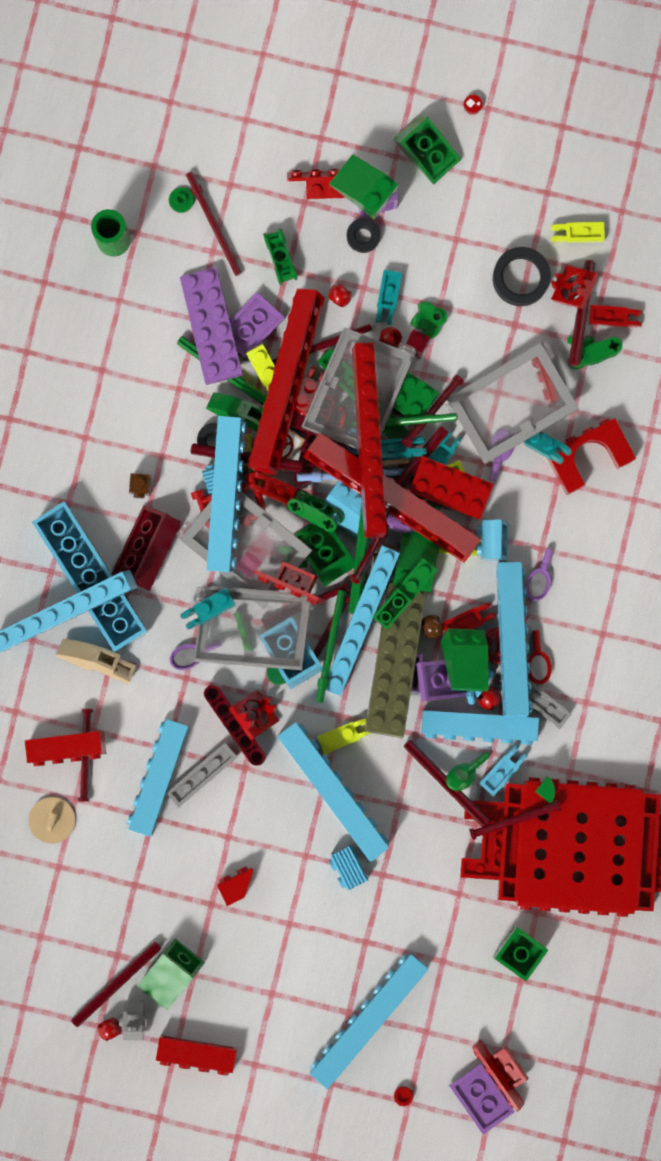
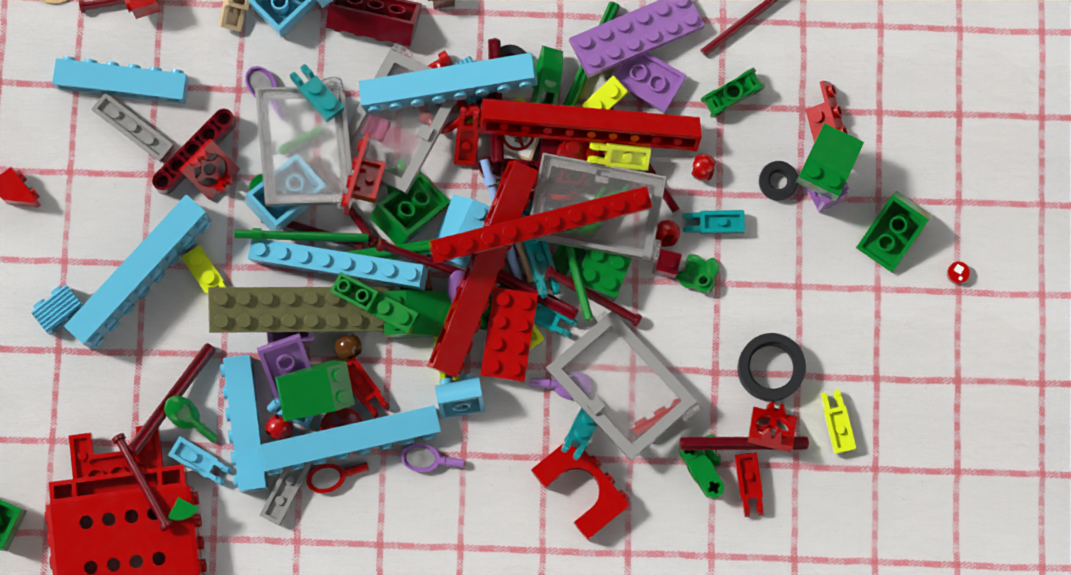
camera: 80 degrees right, 5 degrees down
(316, 511) = (452, 190): green piece -> none
(318, 361) = (622, 156): none -> neon yellow hinge

